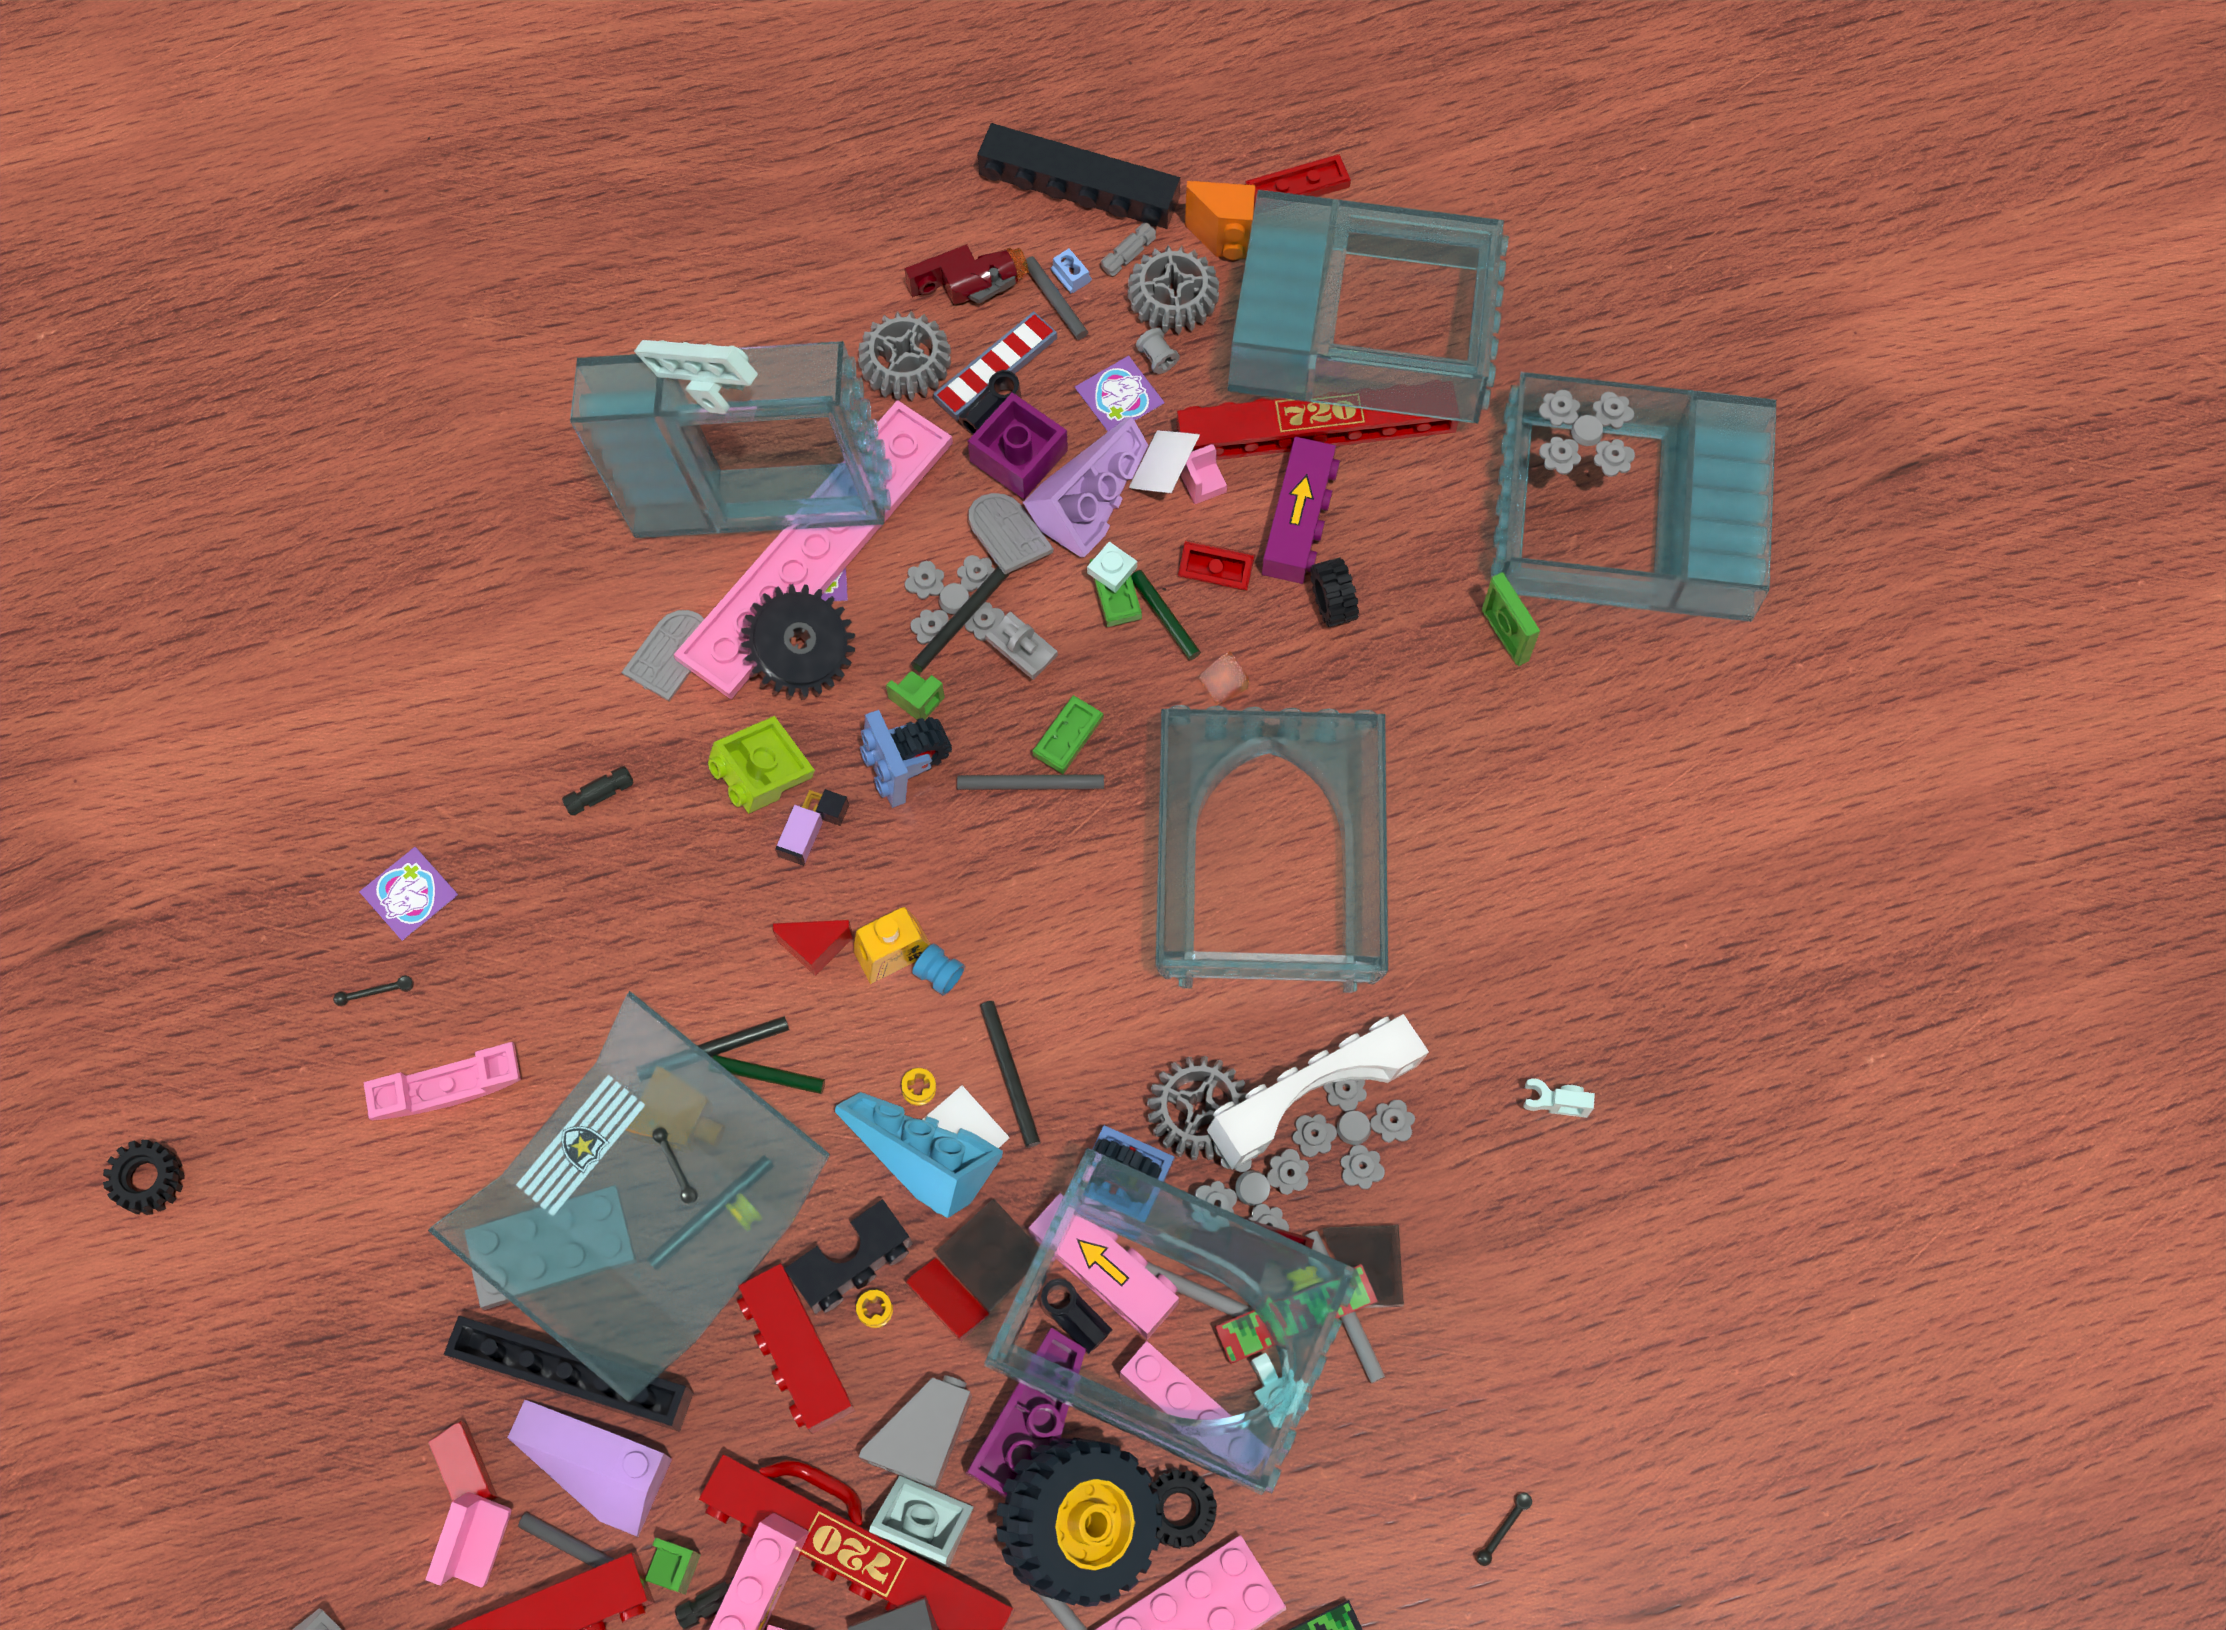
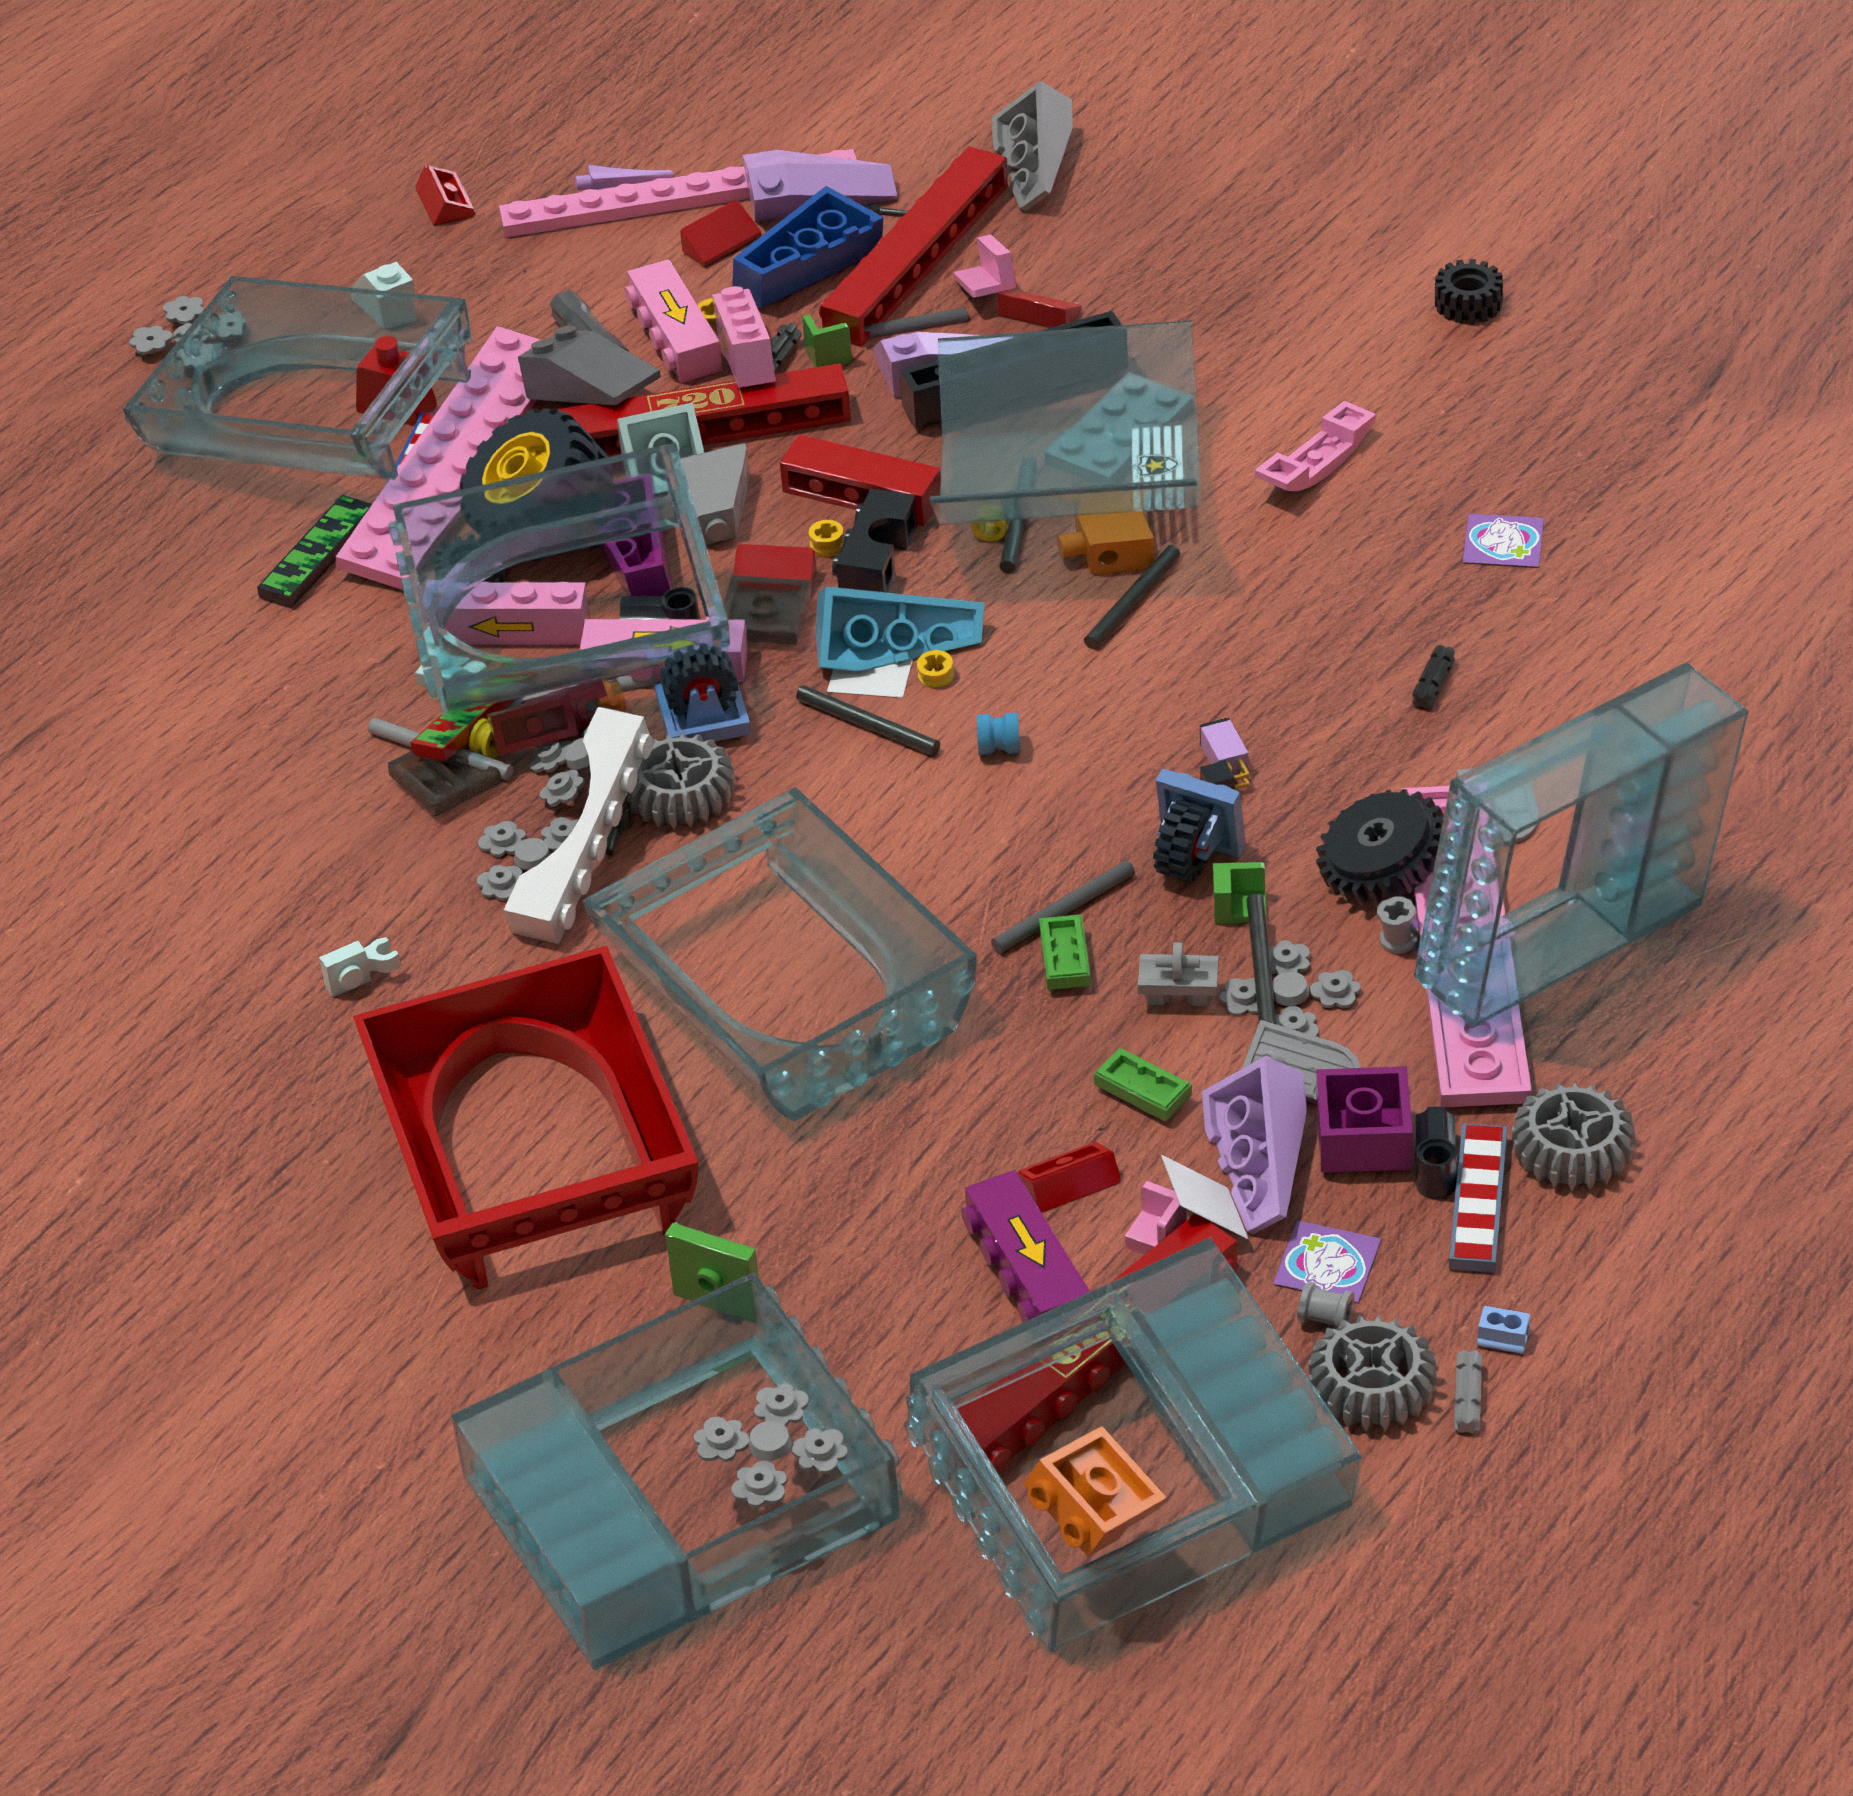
camera: 145 degrees right, 25 degrees down
(404, 983) = (1430, 491): pearl dark grey hinge -> none
(688, 1194) = (1038, 482): pearl dark grey hinge -> none
(705, 365) = (1589, 695): light aqua plate -> none
(759, 764) = (1313, 762): lime plate -> none
(771, 1075) = (1068, 607): dark green bar -> none
(814, 942) = (1129, 687): red slope -> none
(820, 1480) = (766, 442): red animal -> none
(852, 577) = (1398, 931): none -> light grey bush
(889, 944) = (1053, 716): yellow torso -> none
(966, 277) = (1598, 1245): dark red plate -> none
(1056, 299) = (1491, 1297): dark grey bar -> none
(1078, 176) = (1599, 1417): black brick -> none
(1112, 567) = (1159, 1080): light aqua plate -> none
(1165, 615) = (1075, 1101): dark green bar -> none
(1221, 216) = (1399, 1448): orange slope -> none
(1224, 678) = (961, 1086): clear orange slope -> none
(1306, 179) = (1358, 1588): red tile -> none
(1334, 592) = (917, 1191): black tyre -> none
(1441, 240) = (1092, 1491): none -> orange plate
(1522, 1502) = (191, 728): pearl dark grey hinge -> none
(1601, 948) = (553, 1010): none -> red panel

